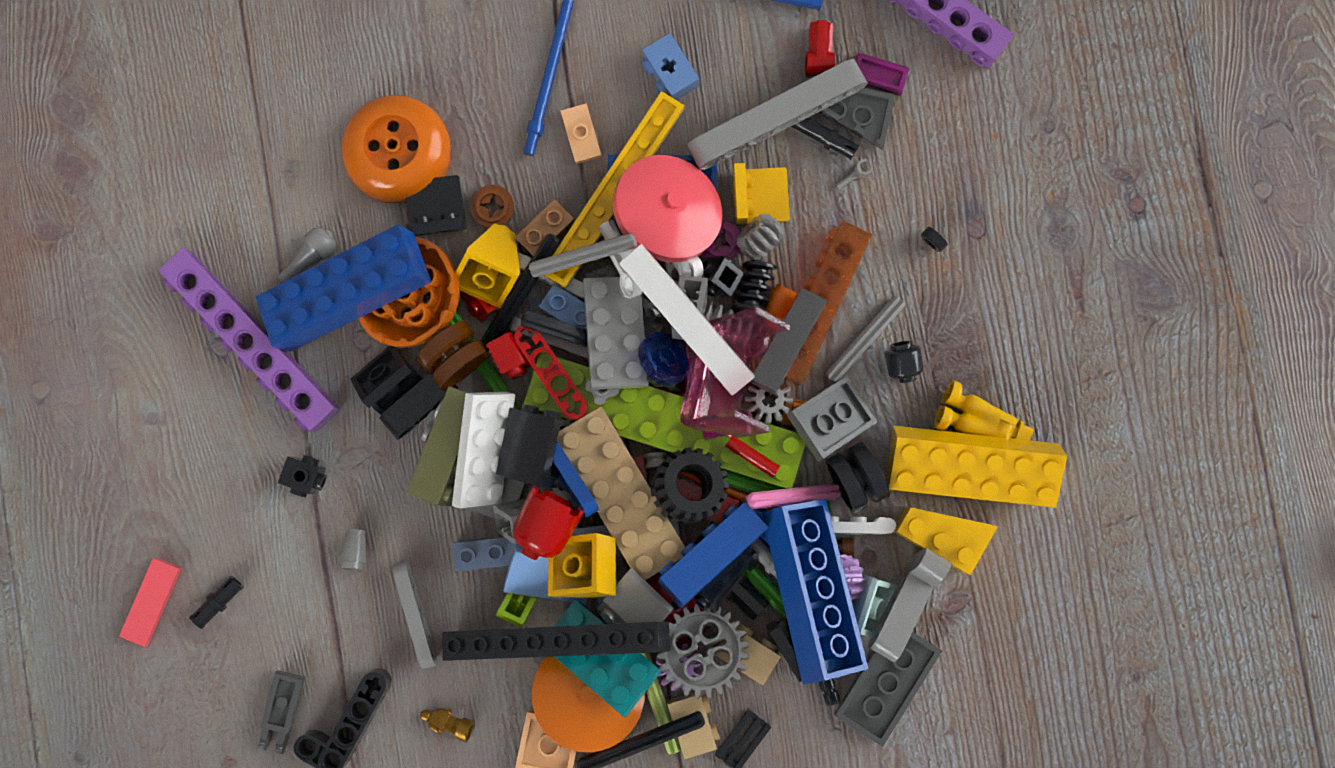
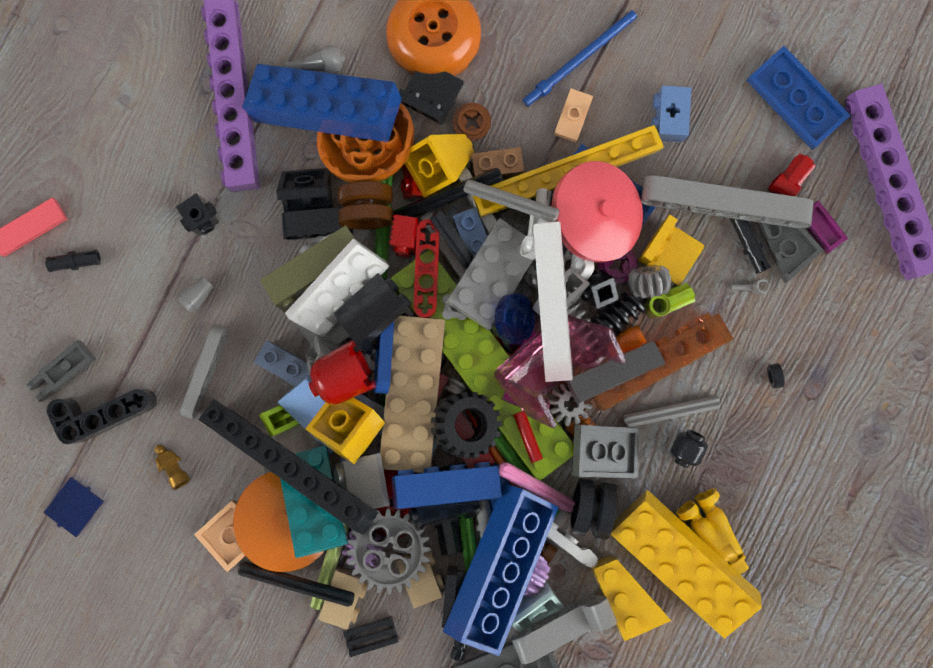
camera: 40 degrees right, 0 degrees up
(792, 240) = (671, 301): none -> lime piece

